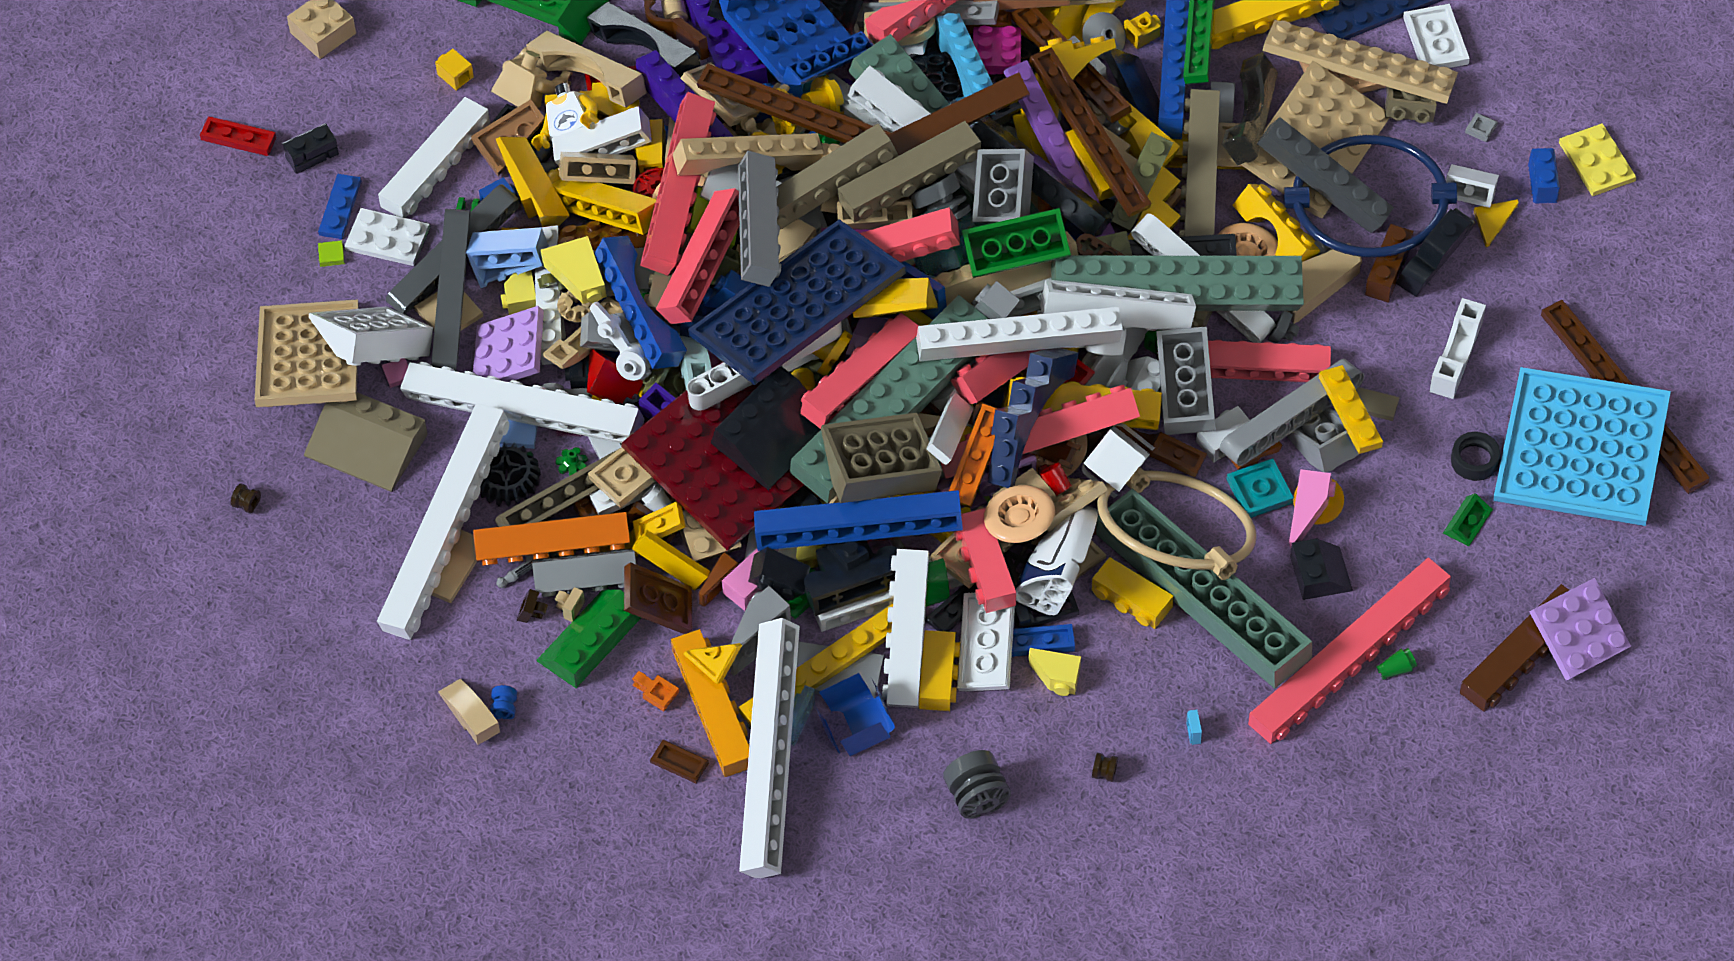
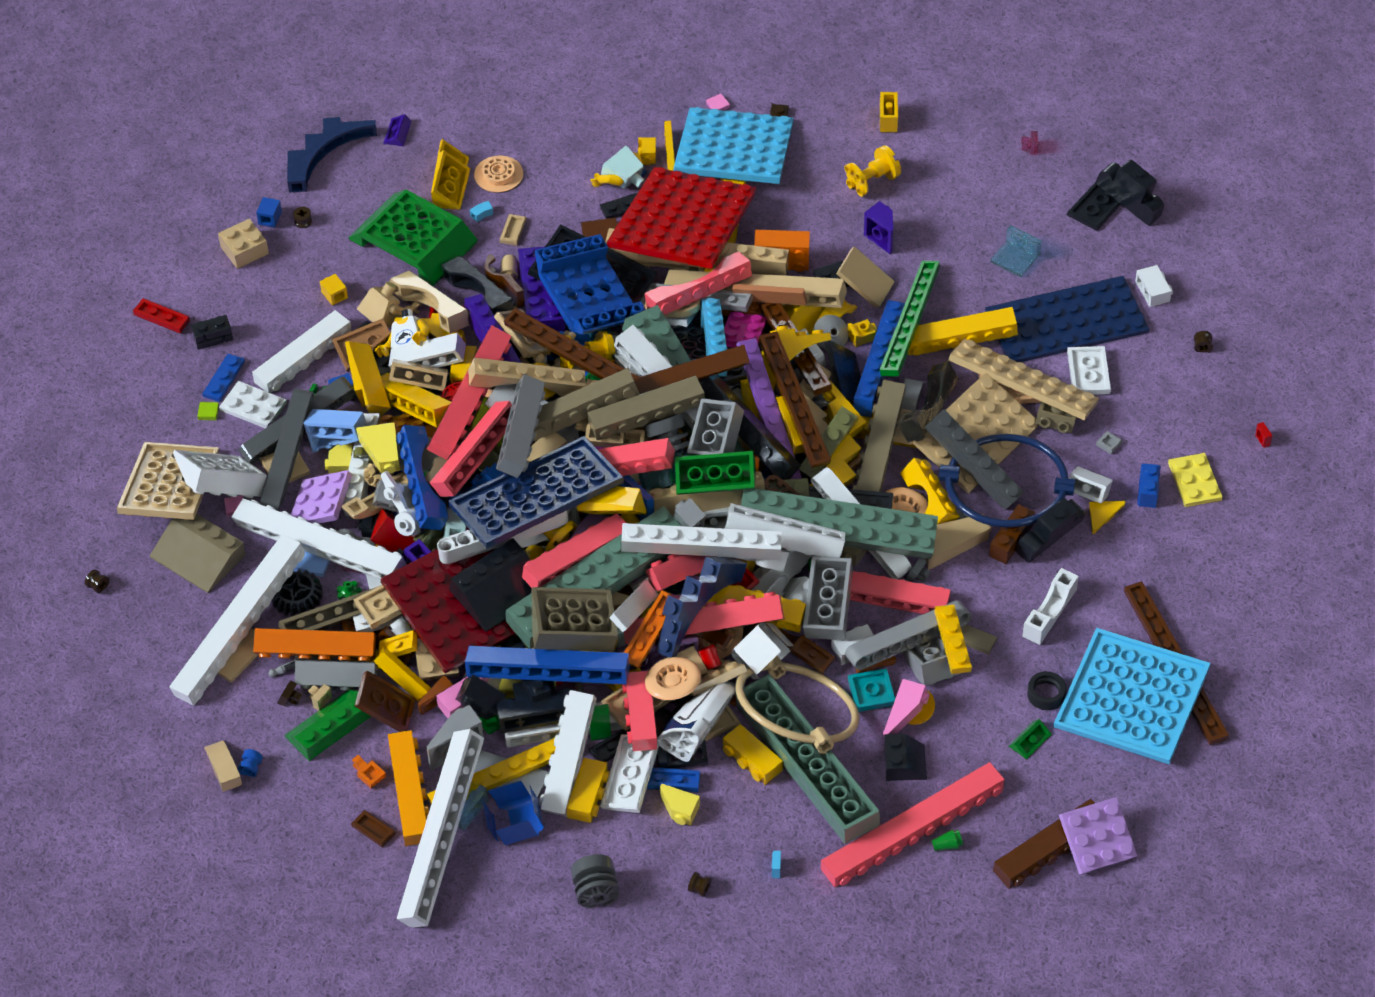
camera: 10 degrees right, 5 degrees down
(714, 660) = (415, 754): yellow tile -> none
(1670, 90) = (1263, 435): none -> red tile

